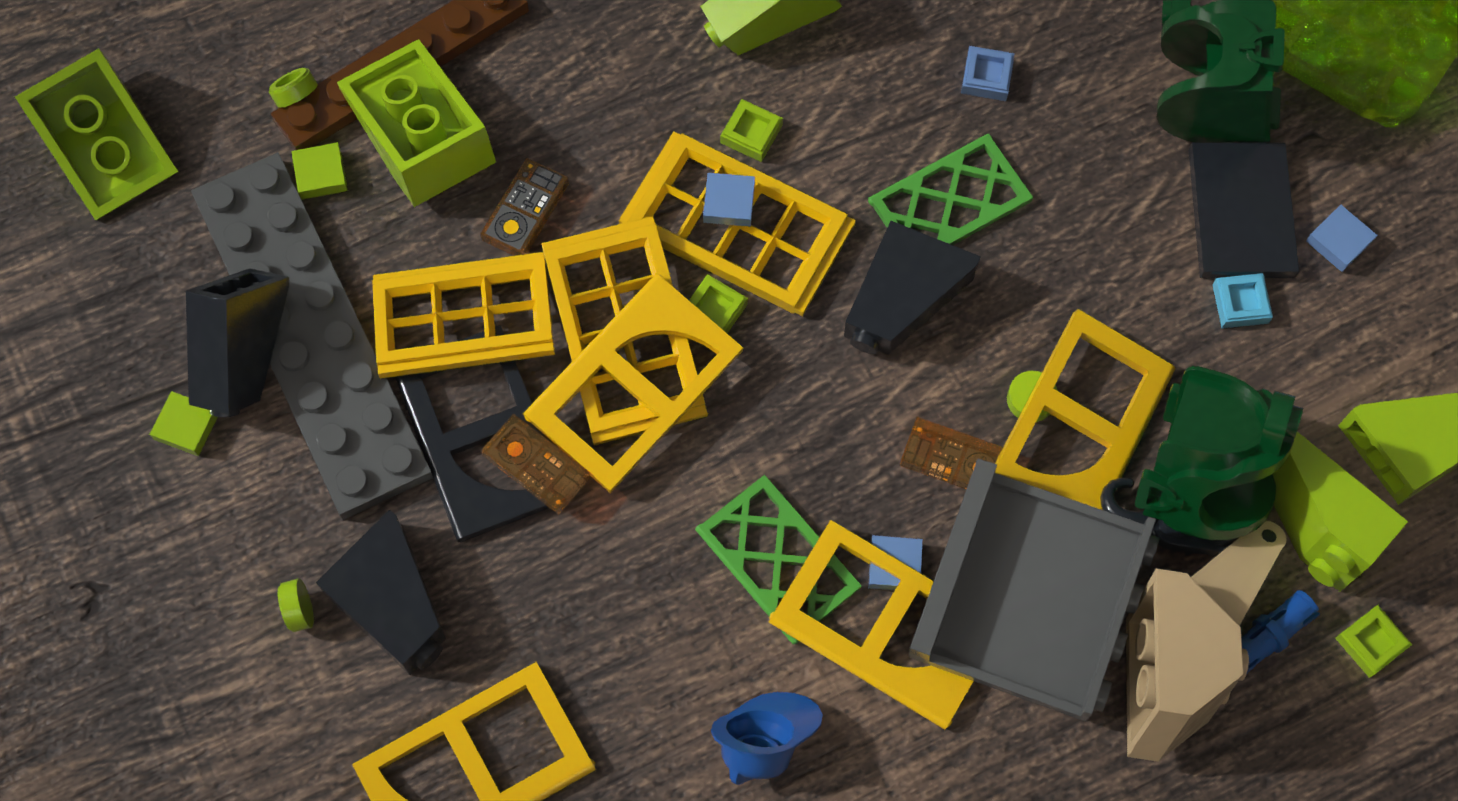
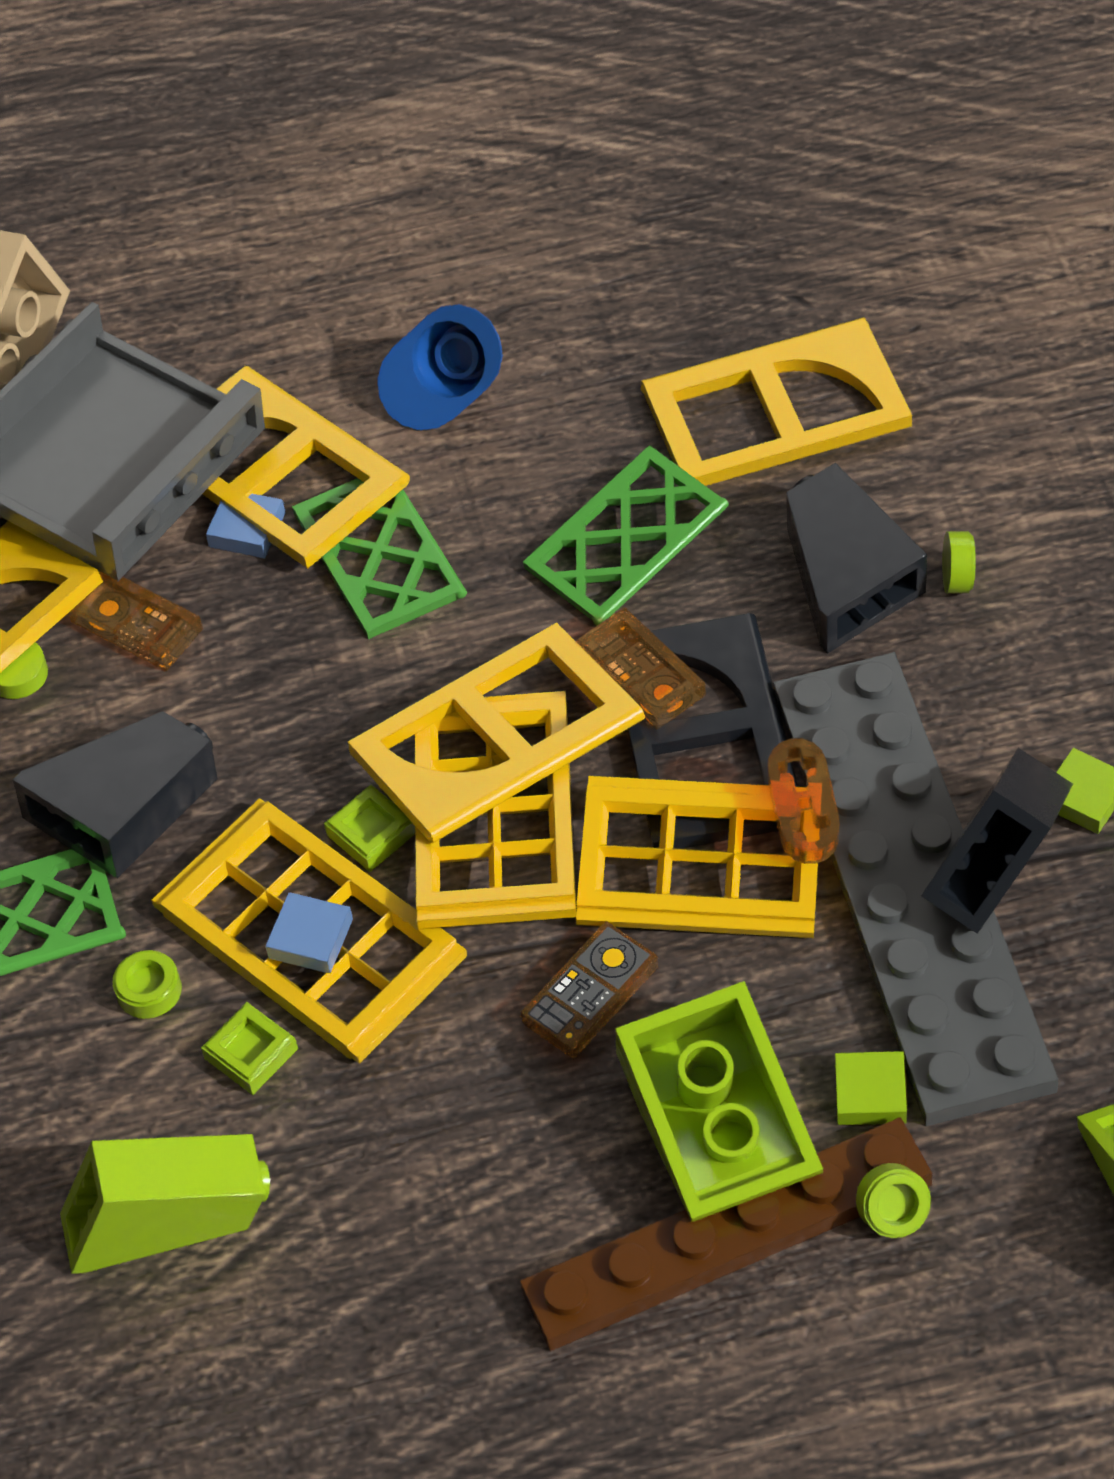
camera: 160 degrees left, 15 degrees down
(377, 350) = (817, 798): none -> clear orange beam
(589, 638) = (618, 493): none -> bright green window
(838, 163) = (147, 984): none -> lime tile

